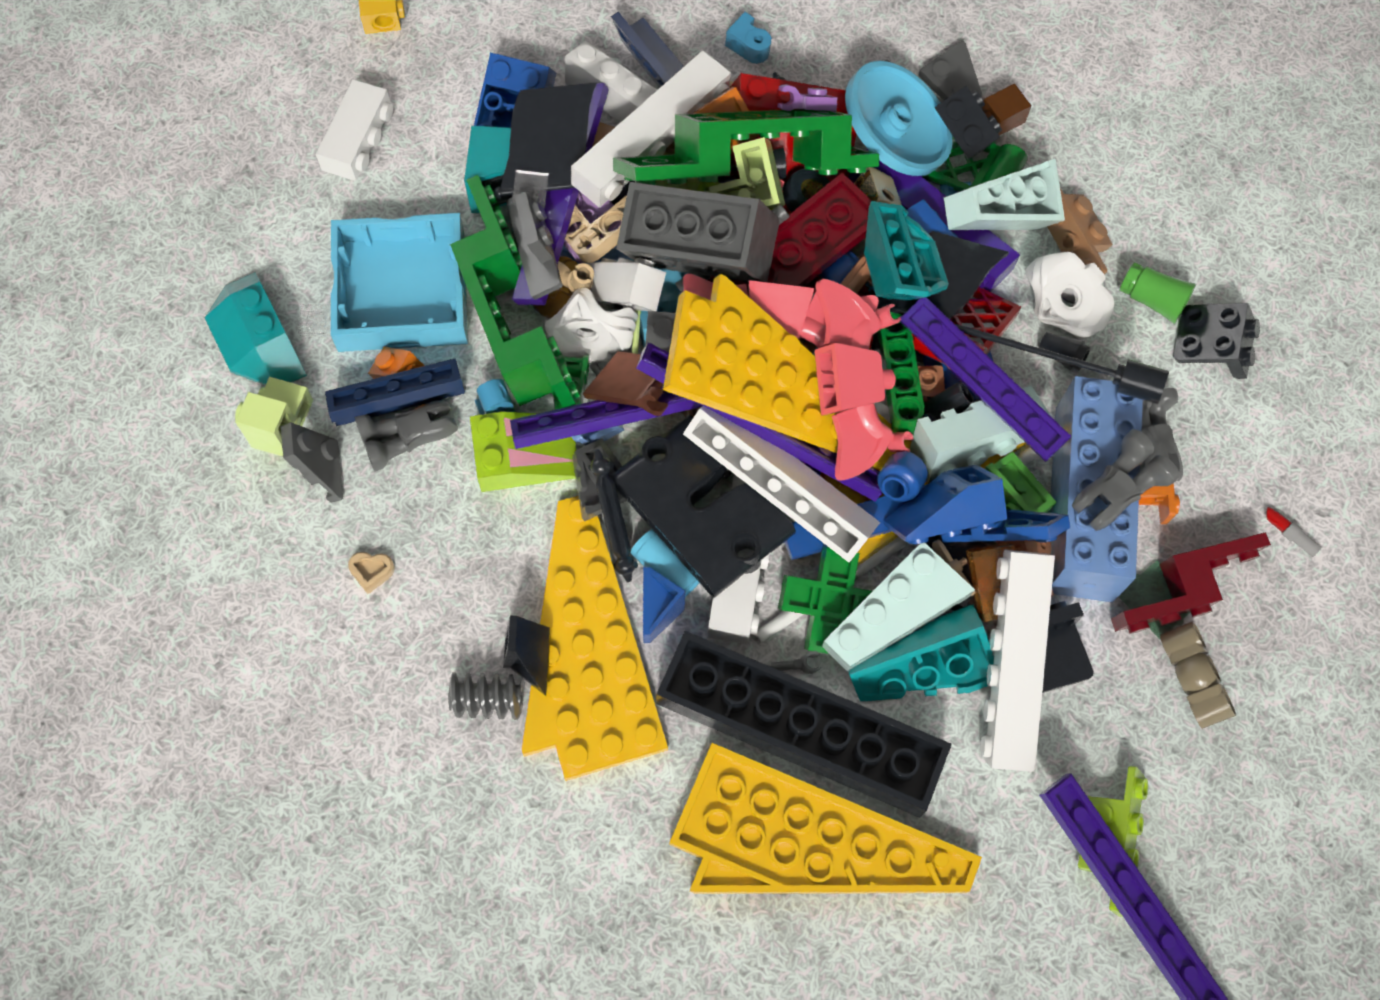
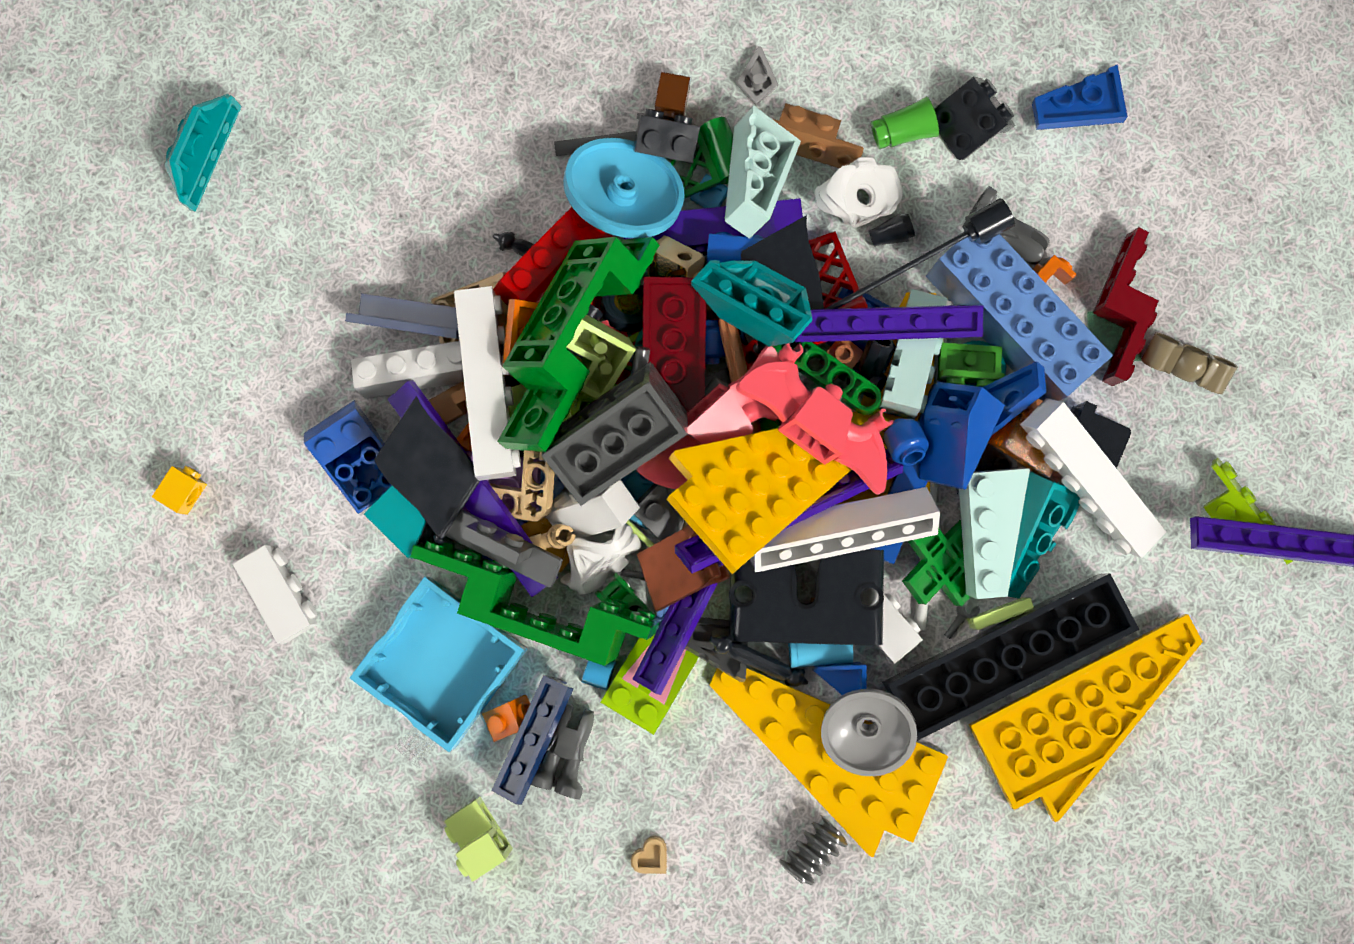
camera: 45 degrees left, 15 degrees up
(252, 333) = (388, 802): teal wedge -> none
(314, 457) = (537, 837): dark grey wing -> none
(527, 651) = (807, 799): black slope -> none
(533, 183) = (458, 514): clear tile -> none
(610, 643) = (872, 747): none -> light grey dish
(748, 40) = (450, 231): dark azure leg -> none
(815, 99) = (567, 249): medium lavender plate -> none
(820, 679) = (1000, 613): none -> yellowish green tile
(951, 72) = (609, 105): dark grey wing -> none
(956, 565) = (993, 461): tan piece -> none
(1081, 160) = (757, 78): none -> light grey piece
(1118, 488) = (1050, 313): dark grey piece -> none
(1293, 532) = (1145, 202): light grey piece -> none
(1325, 420) = (1086, 103): none -> blue wing

